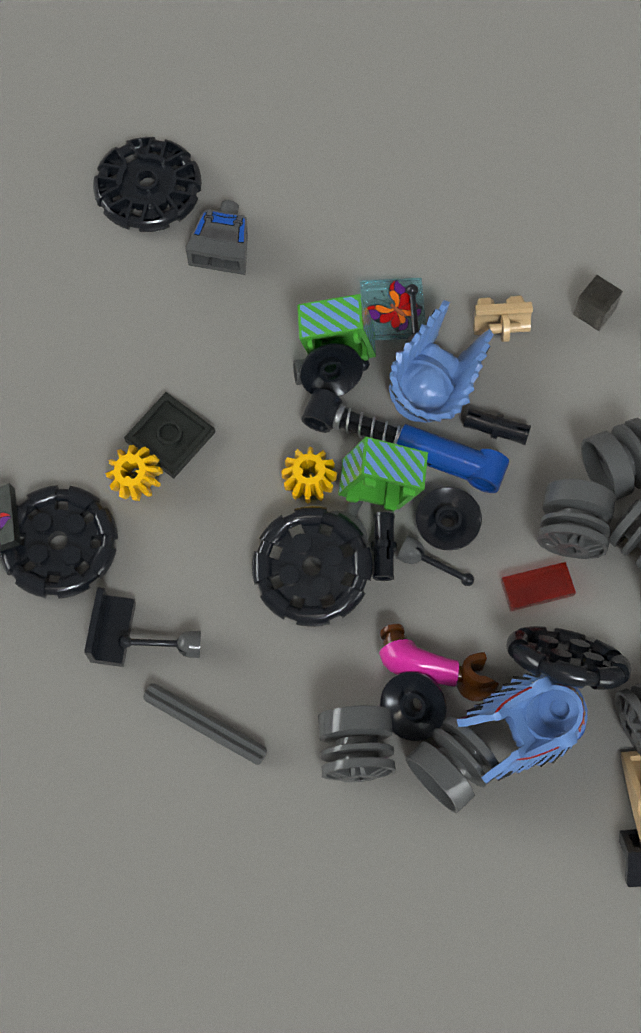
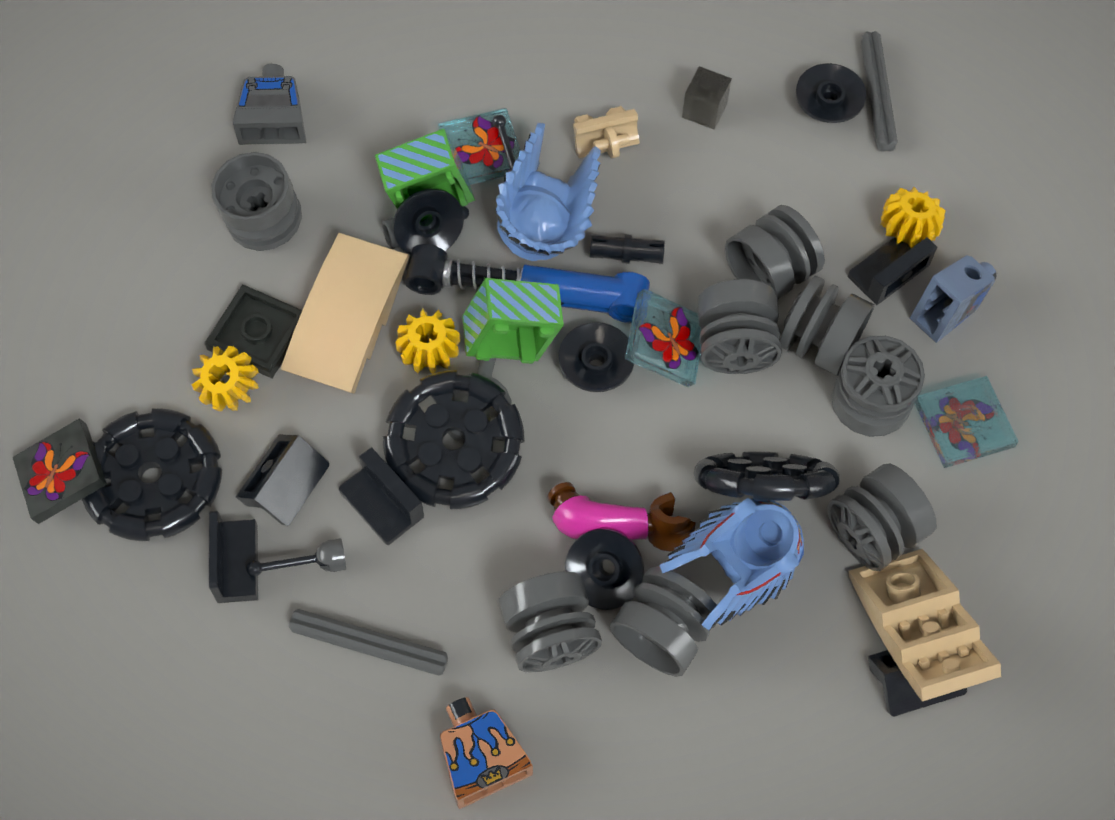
camera: 15 degrees left, 5 degrees down
(151, 198) = (179, 80): black plate -> none
(165, 568) = (284, 478): none -> panel
(191, 322) = (256, 201): none -> dark grey wheel
(241, 603) = (382, 498): none -> black panel
(245, 435) = (345, 312): none -> tan slope
(275, 839) = (481, 753): none -> torso
(383, 546) = (530, 402): black pin -> none
(413, 552) = (565, 402): hinge -> none
(510, 514) = (665, 338): none -> clear light blue tile
(538, 586) = (713, 411): clear red tile -> none

